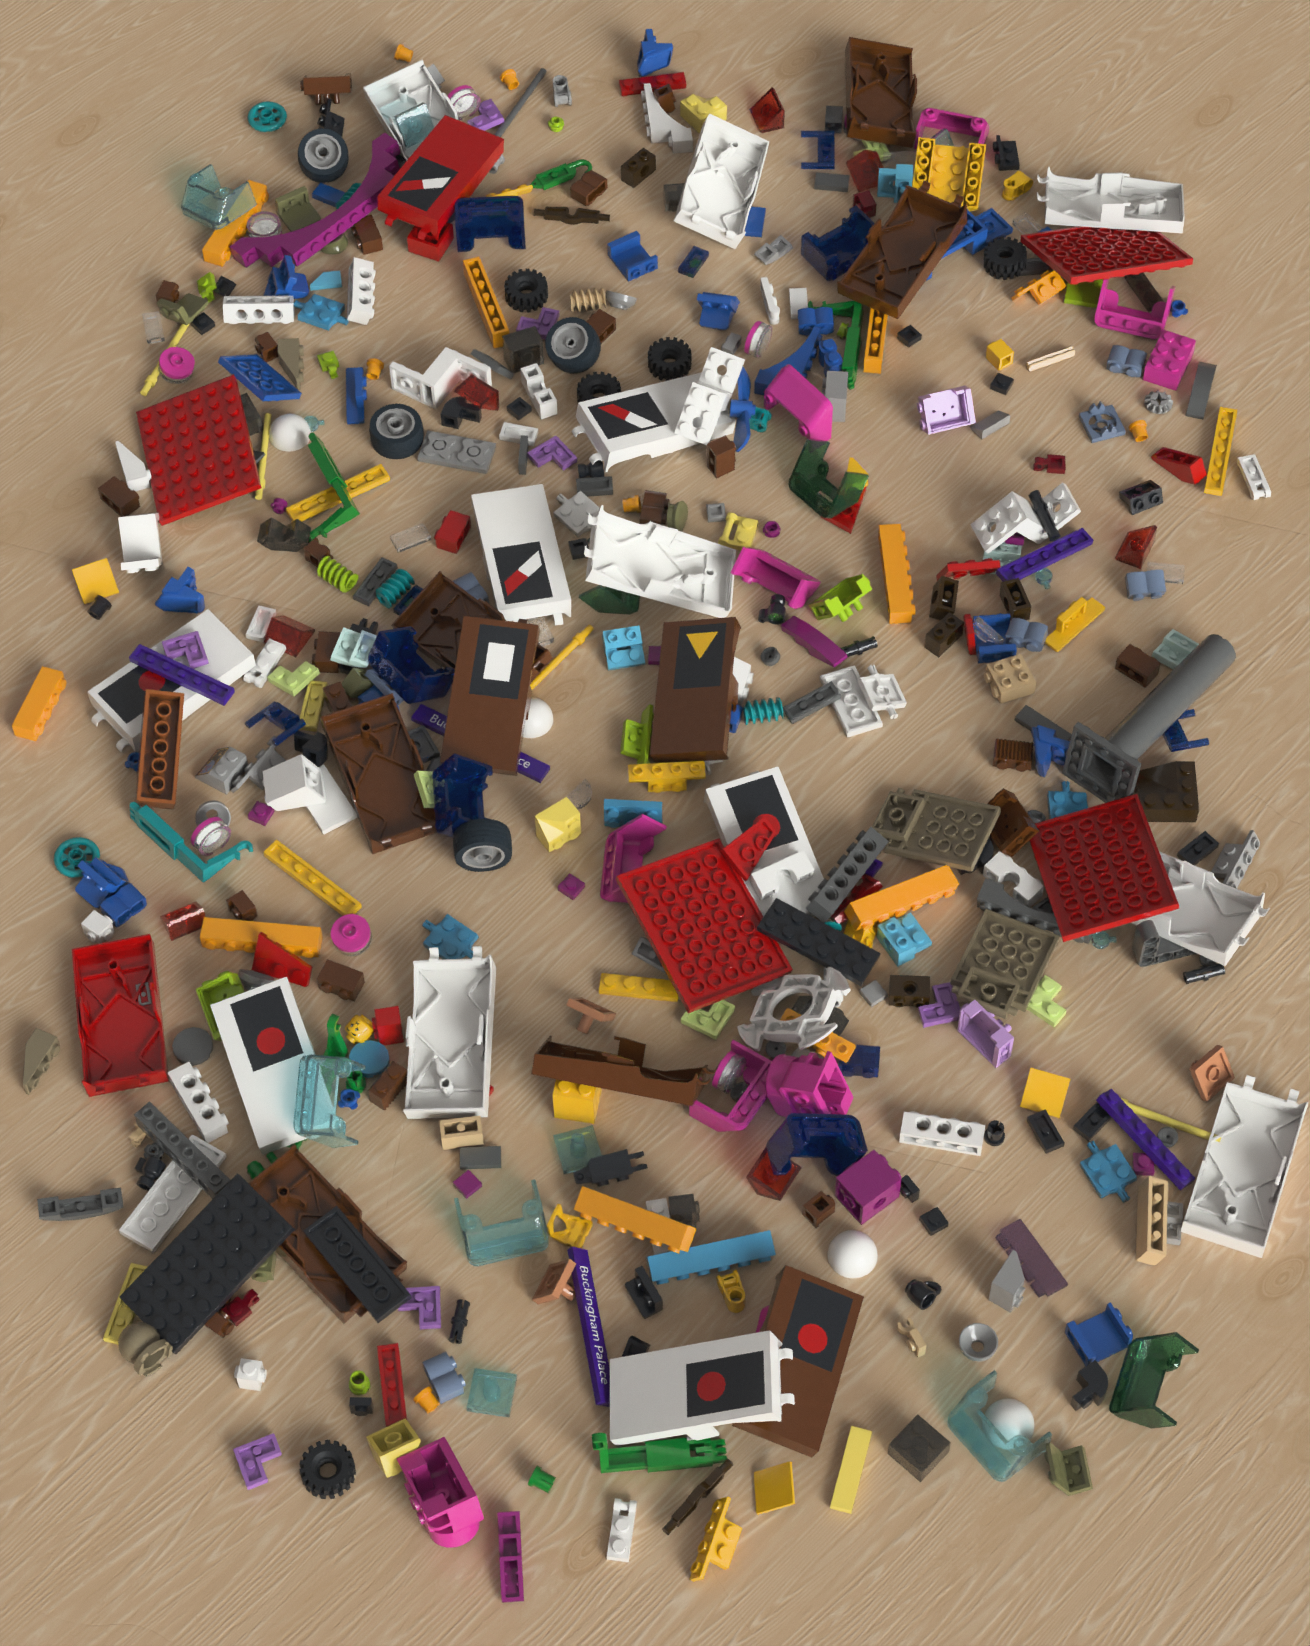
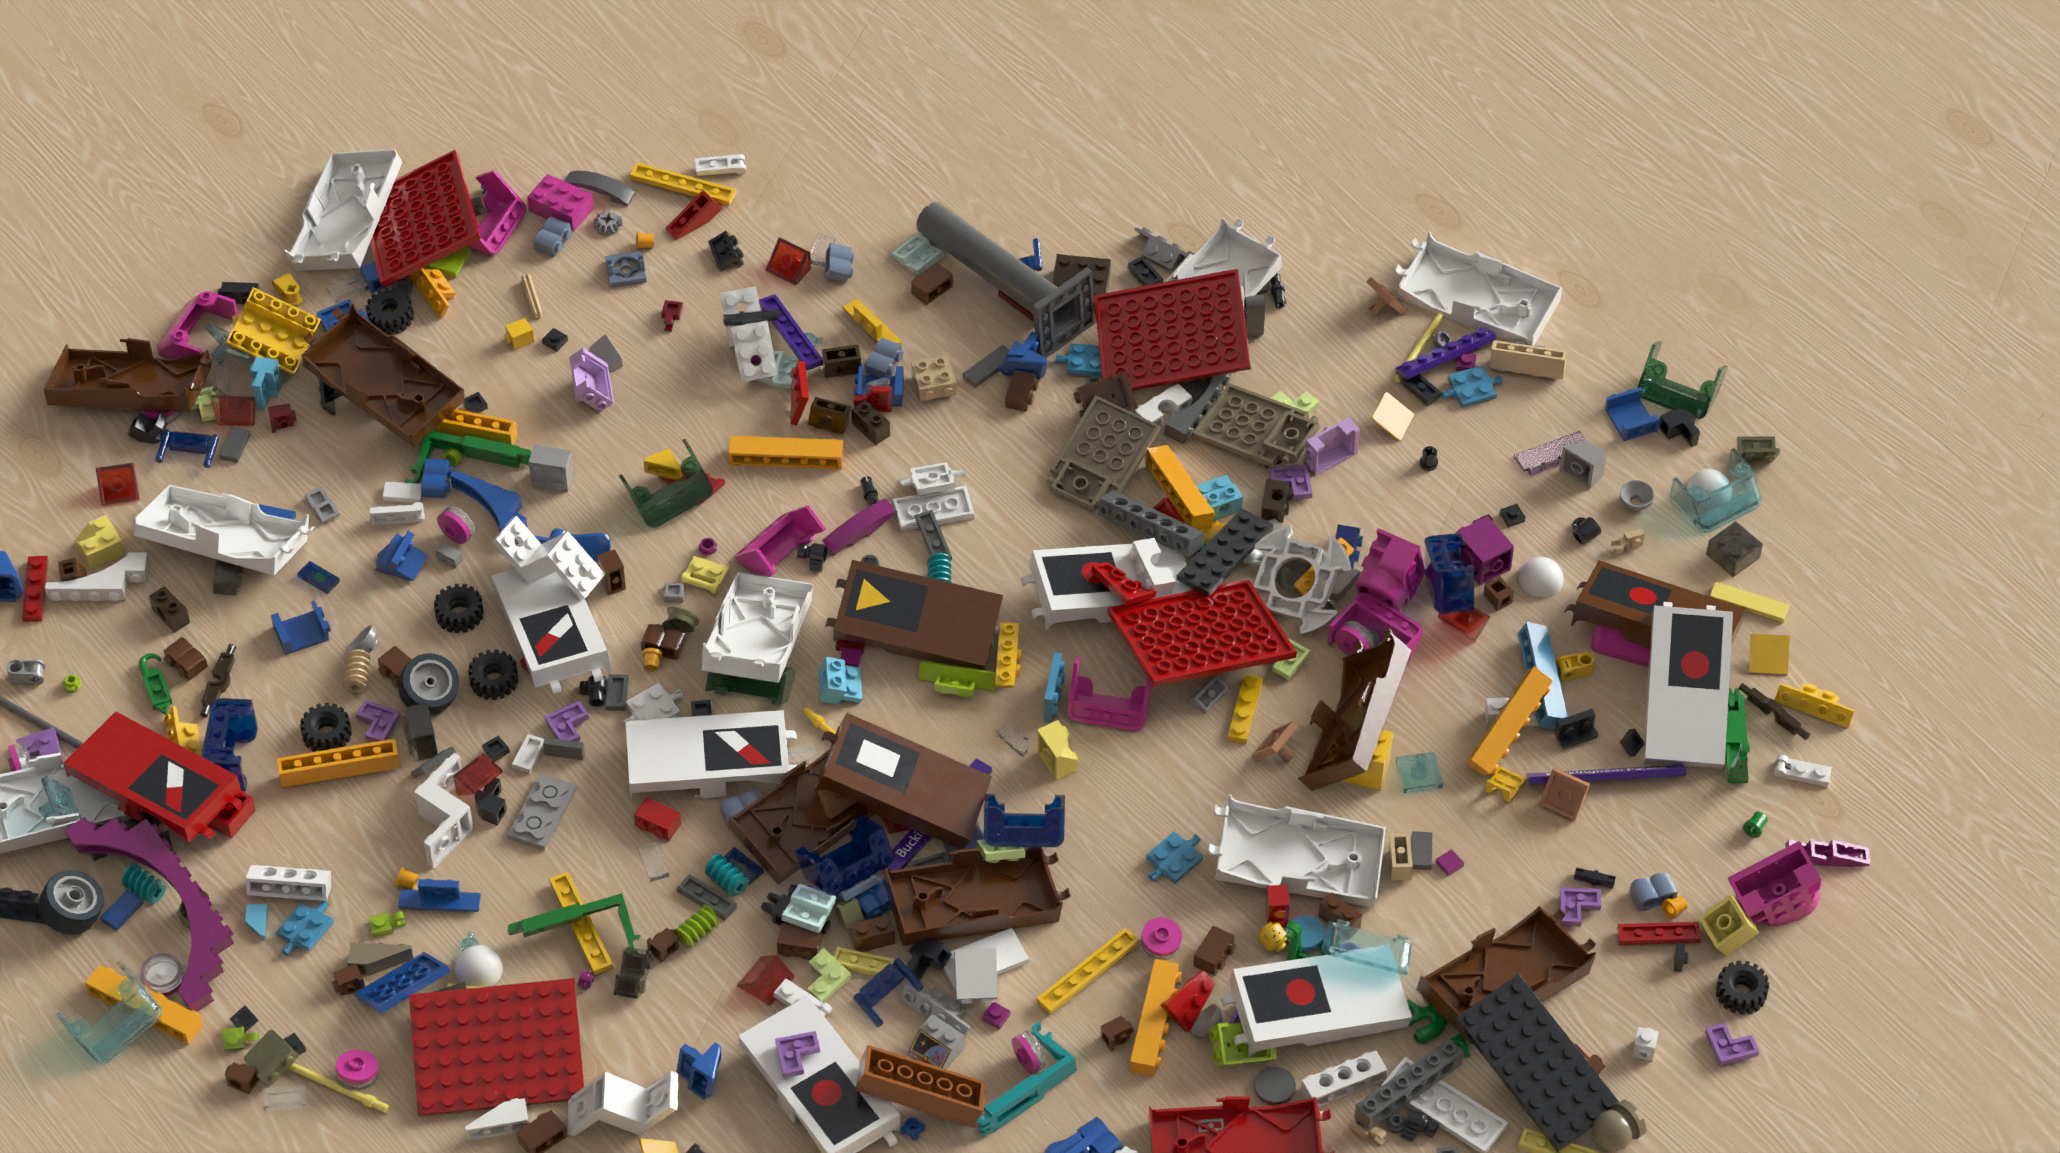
camera: 85 degrees left, 5 degrees down
(181, 674) = (828, 1059): dark purple plate -> none
(183, 920) = (1122, 1086): clear red slope -> none
(222, 812) = (1001, 1053): light grey piece -> none
(249, 304) = (292, 982): white brick -> none
(260, 623) = (745, 1005): white tile -> none
(285, 282) = (257, 956): blue piece -> none
(296, 209) = (143, 940): olive bracket -> none
(357, 1264) = (1544, 940): black plate -> none
(362, 1388) = (1654, 965): lime piece -> none
(367, 235) = (204, 871): reddish brown brick -> none
(396, 431) = (507, 860): black wheel -> none
(482, 845) = (1079, 810): black wheel -> none
(492, 1392) = (1666, 857): clear light blue tile -> none
(507, 1238) = (1514, 852): clear light blue windscreen -> none
(542, 398) = (493, 724): white arch -> none
(571, 886) = (1122, 754): magenta plate -> none
(608, 1167) = (1445, 744): black hinge -> none
(684, 1209) = (1502, 683): clear smoke brick -> none
(802, 401) = (559, 488): dark pink windscreen -> none
(829, 357) = (495, 470): blue brick -> none
(840, 247) = (338, 438): clear blue windscreen -> none
(841, 597) = (815, 488): lime piece -> none
(933, 1139) = (1427, 495): white brick -> none
(1045, 1131) = (1430, 423): black plate -> none

